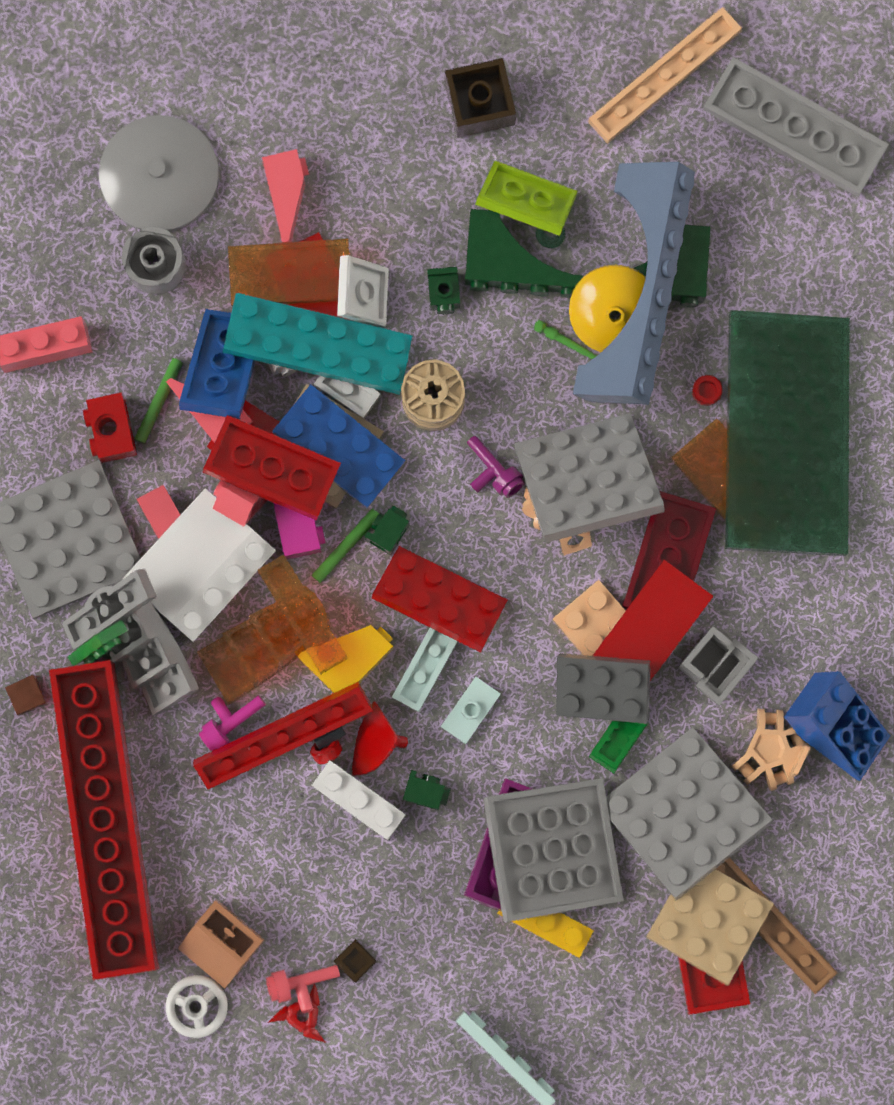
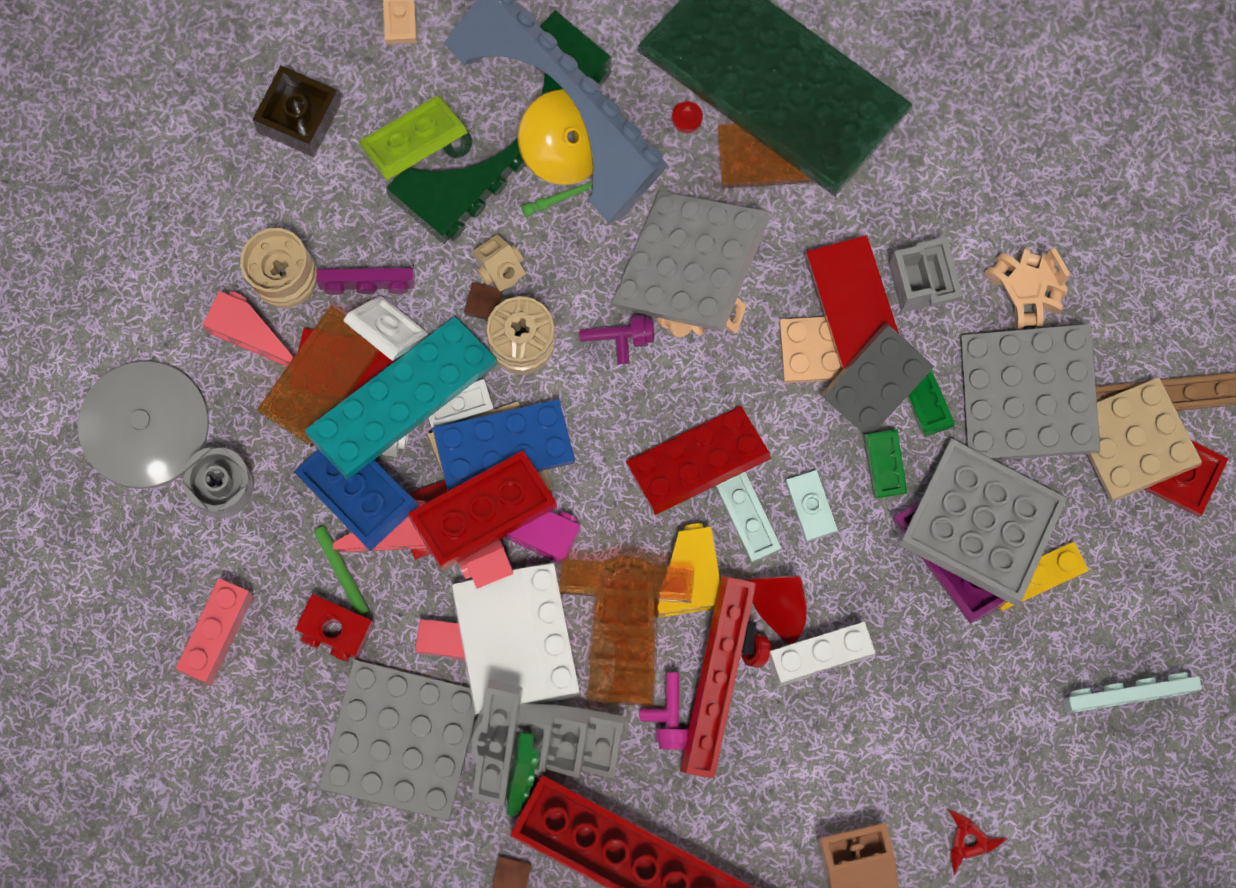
camera: 55 degrees left, 5 degrees down
(280, 986) = (932, 840): coral piece -> none
(339, 165) = (268, 254): none -> tan wheel
(345, 546) = (591, 506): bright green bar -> none
(355, 961) = (955, 761): dark brown tile -> none
(388, 530) = (606, 459): dark green brick -> none
(389, 249) = (366, 280): none -> magenta plate
(426, 791) = (853, 593): dark green brick -> none
(442, 346) = (482, 301): none -> copper tile
(447, 302) = (438, 274): dark green brick -> none
(477, 336) = (499, 263): none -> tan brick
(545, 742) = (885, 463): none -> green plate
(671, 536) = (789, 234): dark red plate -> none
(837, 723) = (1044, 216): blue slope -> none

